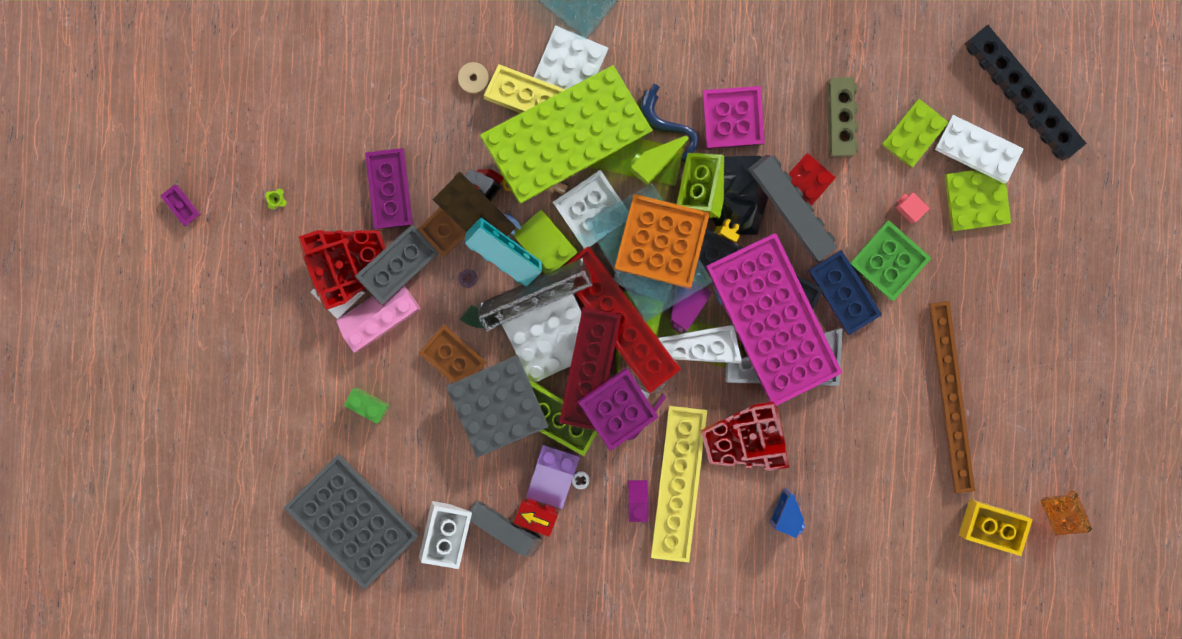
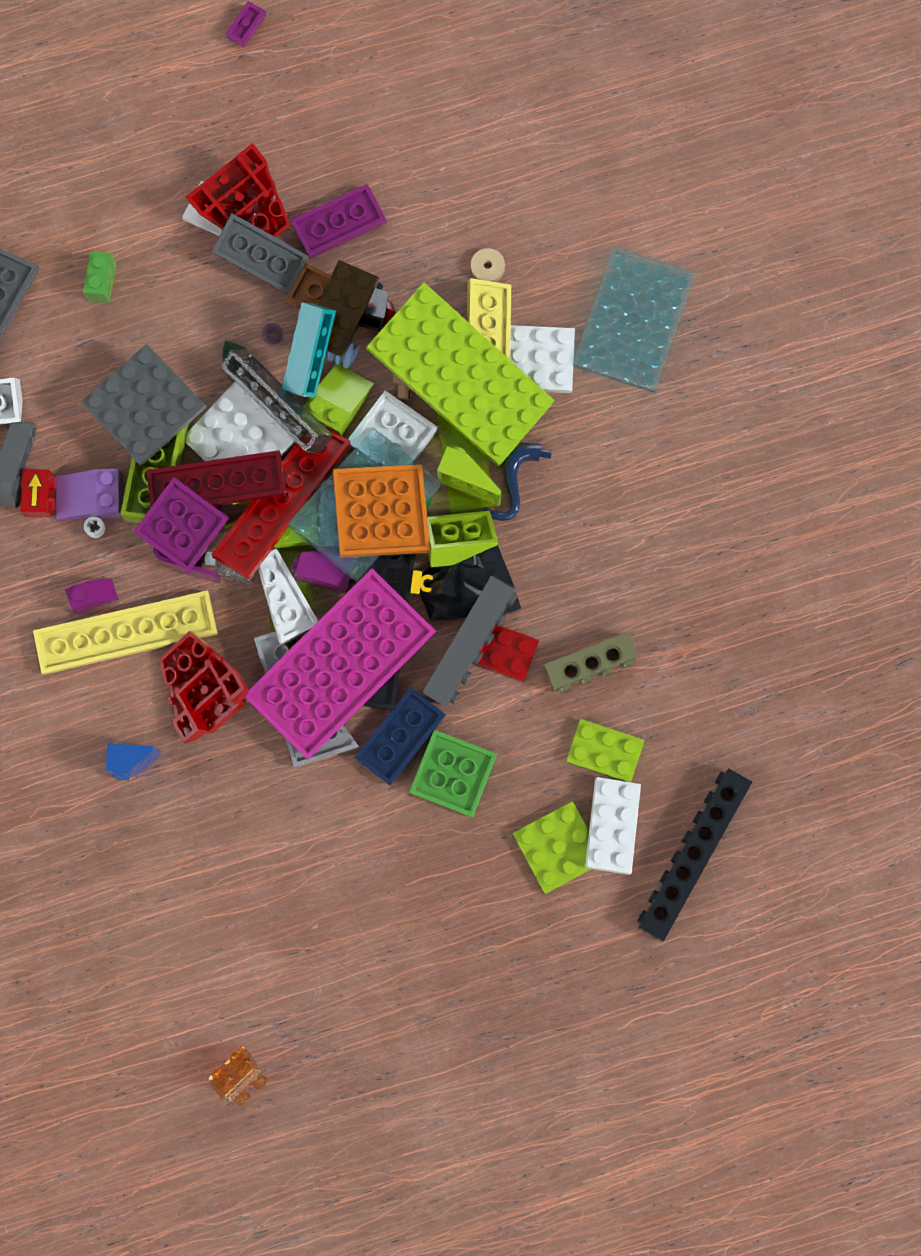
camera: 70 degrees right, 10 degrees down
(272, 204) = (286, 108): lime plate -> none
(372, 320) = (191, 253): bright pink slope -> none
(452, 355) = (184, 344): dark orange plate -> none
(733, 117) = (547, 547): dark pink plate -> none
(911, 207) = (521, 774): coral brick -> none
(951, 397) = (324, 899): dark orange plate -> none
(995, 527) = (193, 999): yellow brick -> none

